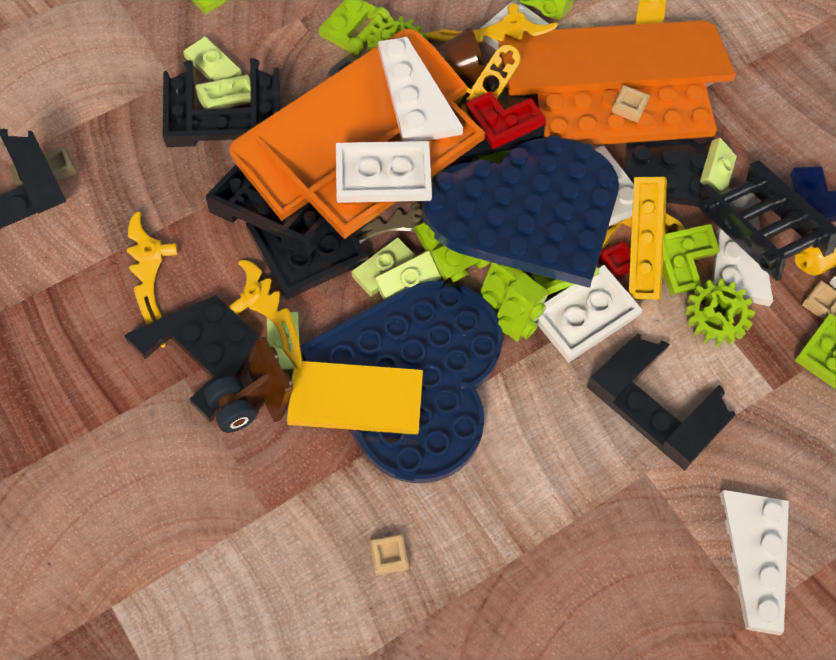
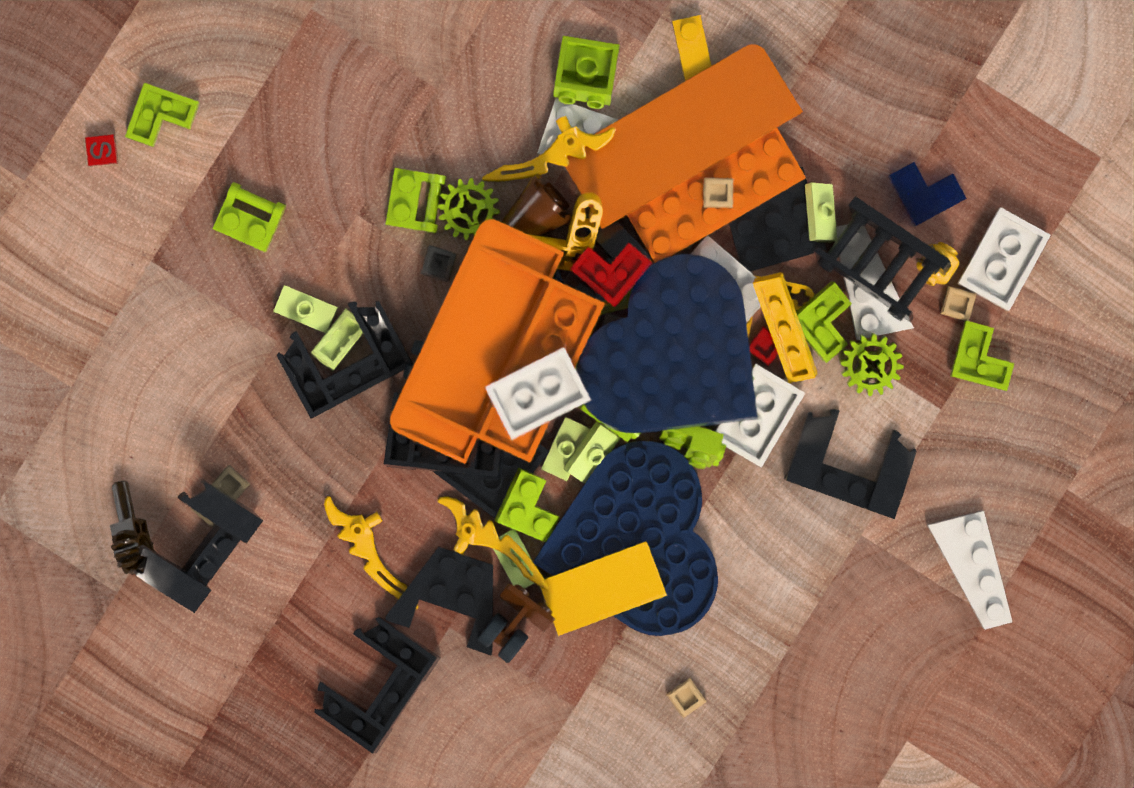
camera: 20 degrees left, 25 degrees up
(50, 431) = (413, 667): none -> black wedge
(311, 293) = (519, 507): none -> lime plate
(416, 99) = (529, 299): white wing -> none

